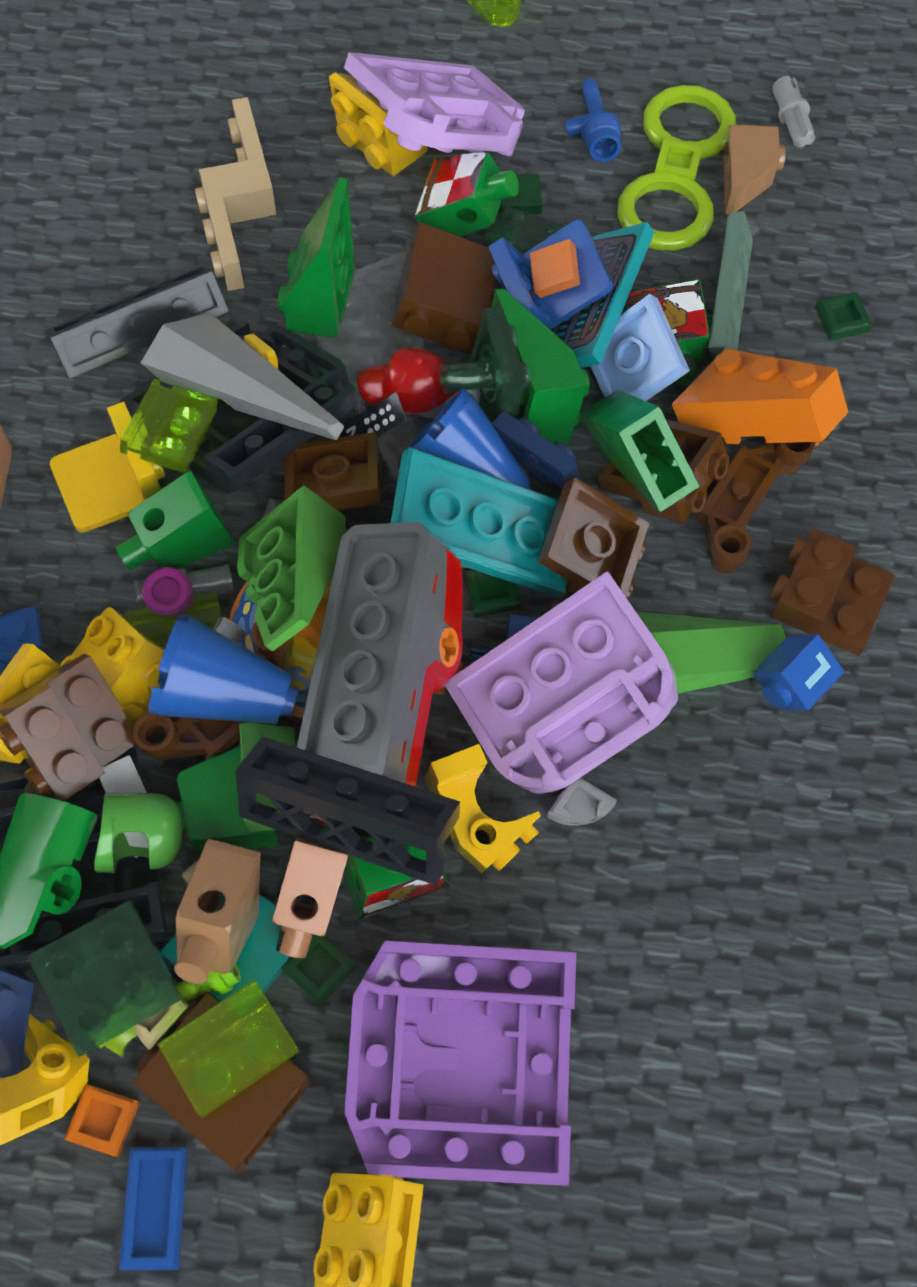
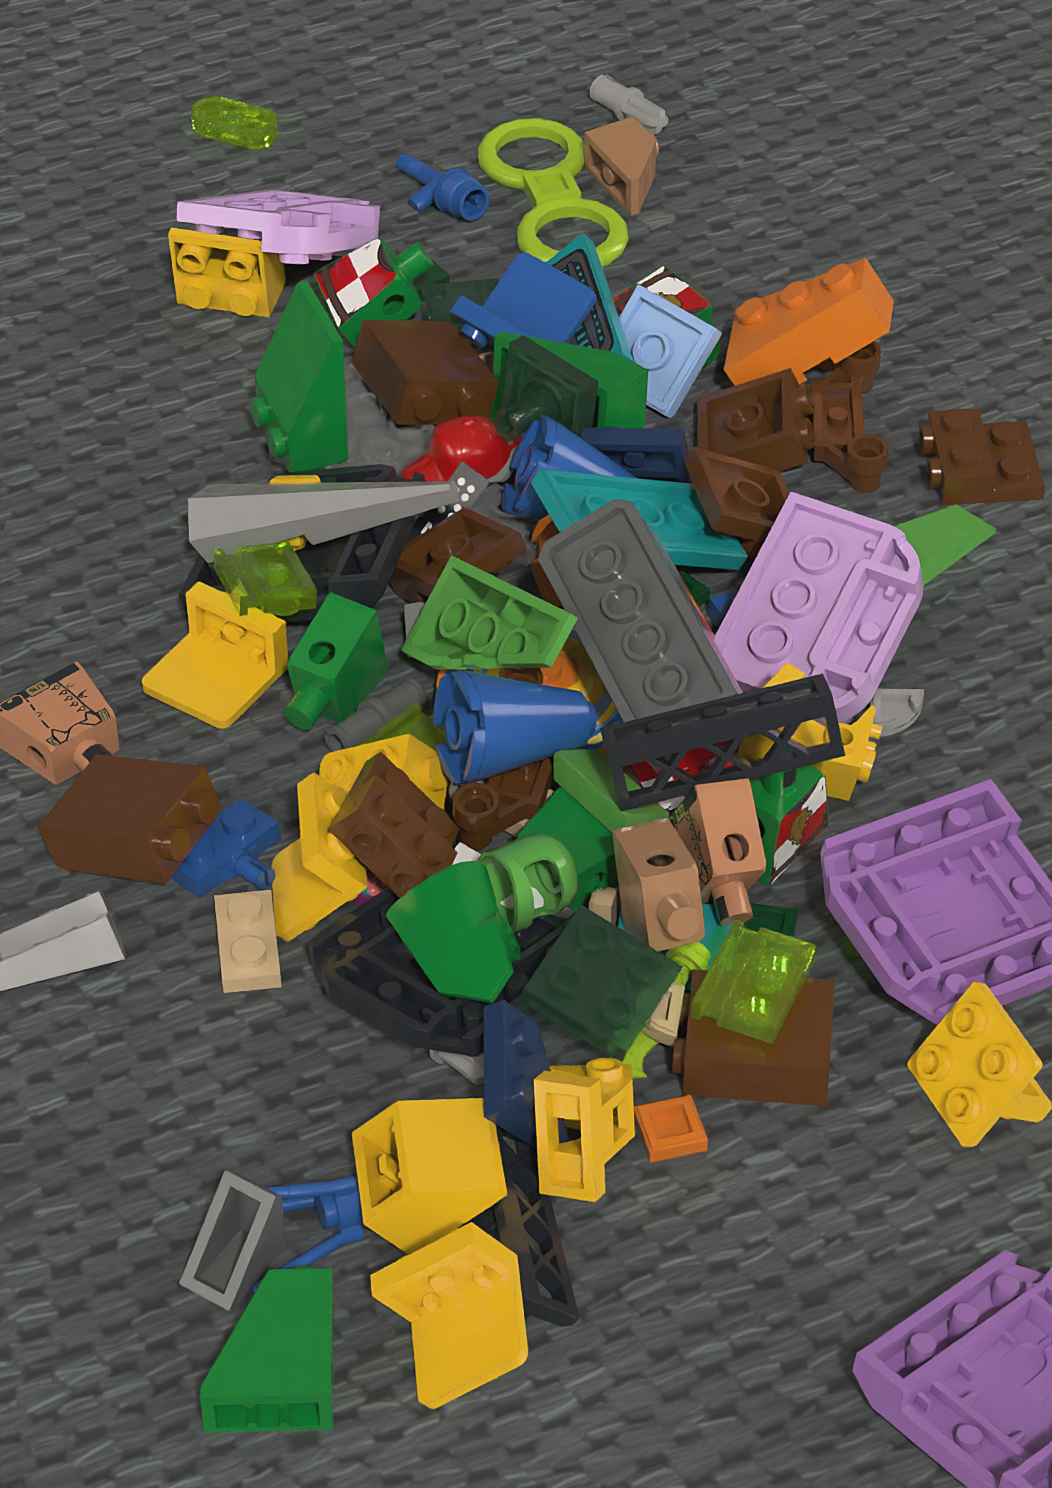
camera: 30 degrees left, 20 degrees down
(134, 320) = (119, 535): fence -> none
(154, 1208) = (774, 1161): blue tile -> none
(168, 592) = (375, 715): magenta tile -> none
(235, 194) = (128, 388): tan bracket -> none
(554, 268) = (527, 303): orange tile -> none
(641, 447) = (729, 404): green slope -> none
(731, 285) = (692, 262): sand green tile -> none
(798, 672) = (1004, 521): blue brick -> none
(843, 316) = (813, 250): dark green tile -> none

